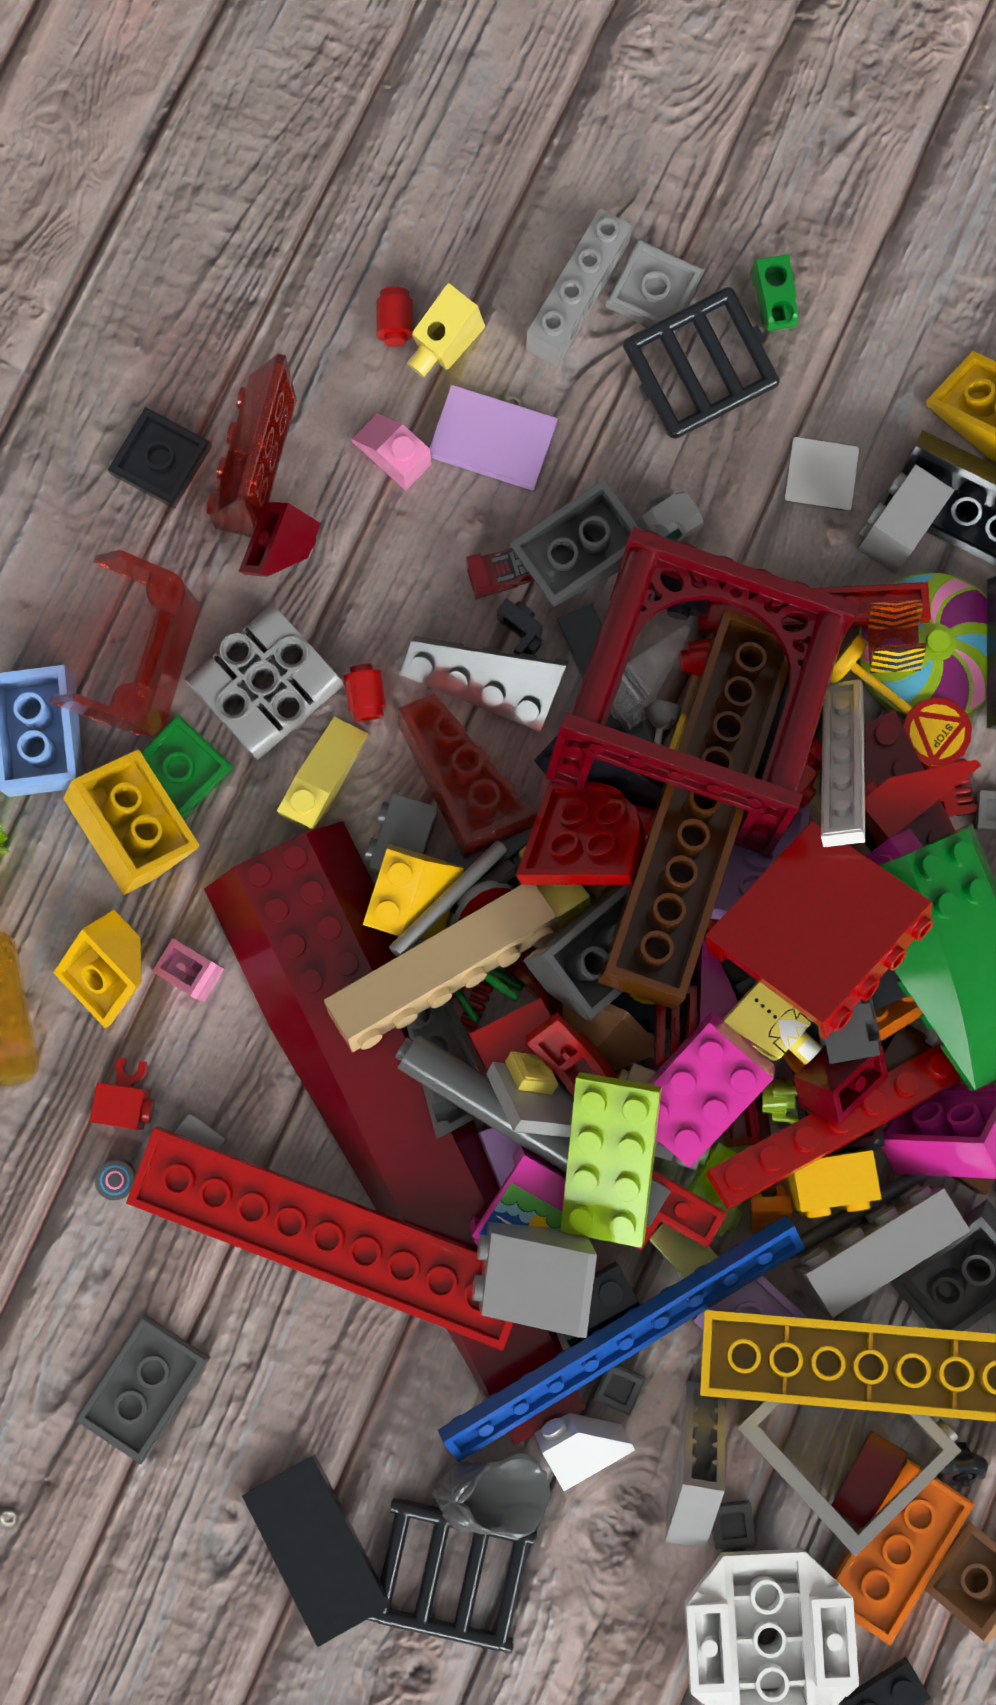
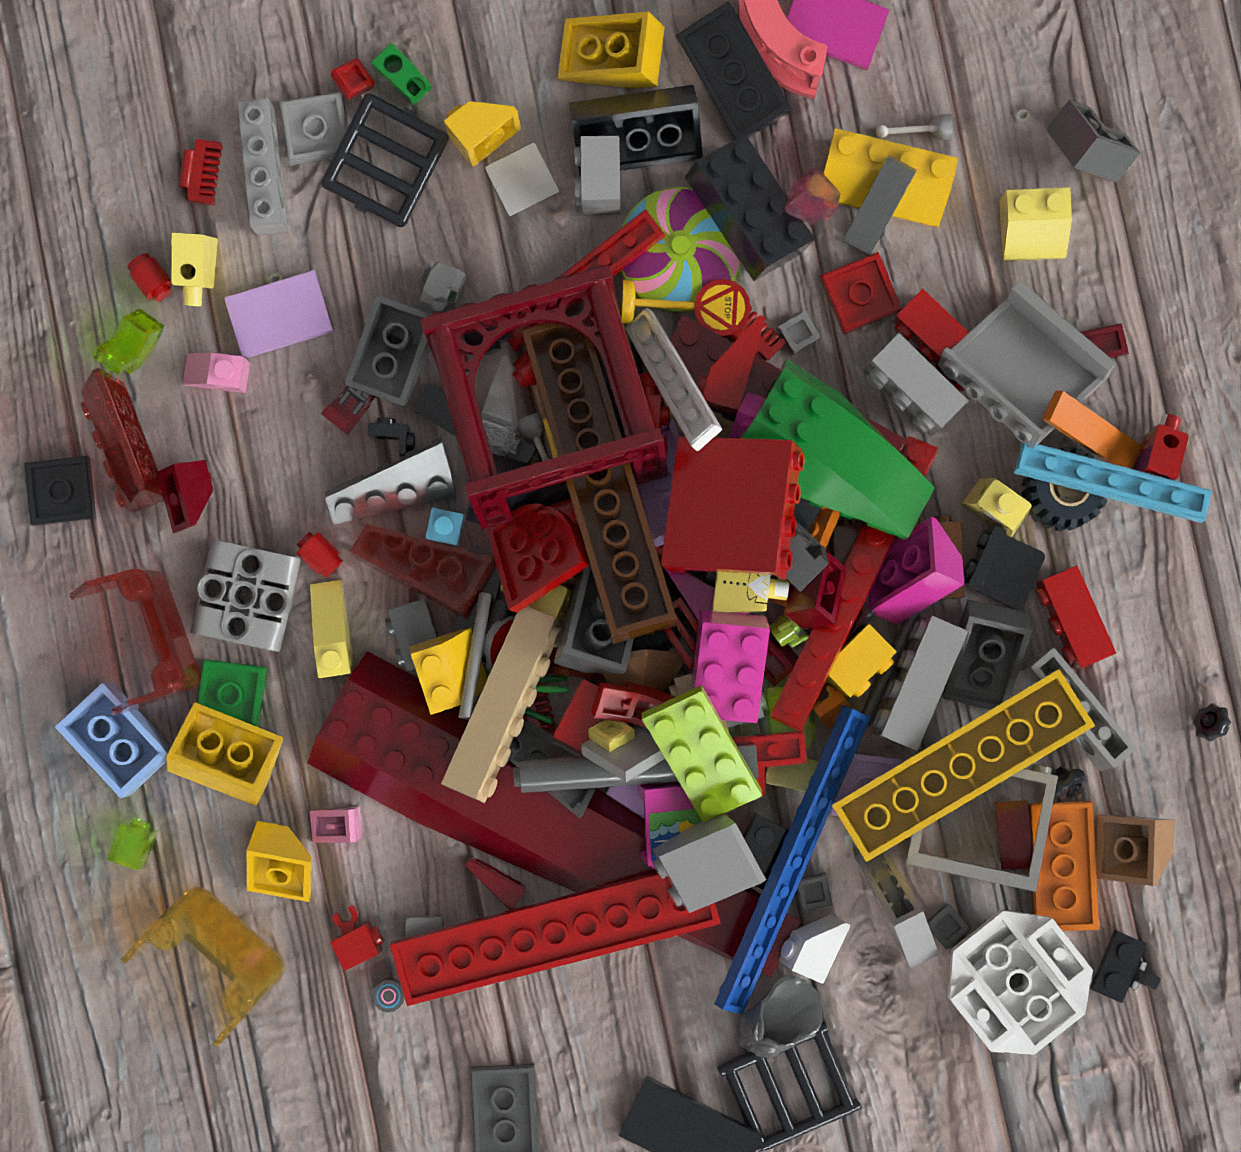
camera: 30 degrees left, 5 degrees up
(308, 1150) = (500, 884): none -> dark red slope
(330, 366) = (131, 344): none -> clear neon green brick
(509, 246) = (193, 171): none -> red piece
(510, 752) = (446, 527): none -> medium azure brick
(724, 266) = (352, 79): none -> red tile
(819, 394) = (481, 128): none -> yellow slope
(898, 621) = (639, 255): clear red piece -> none

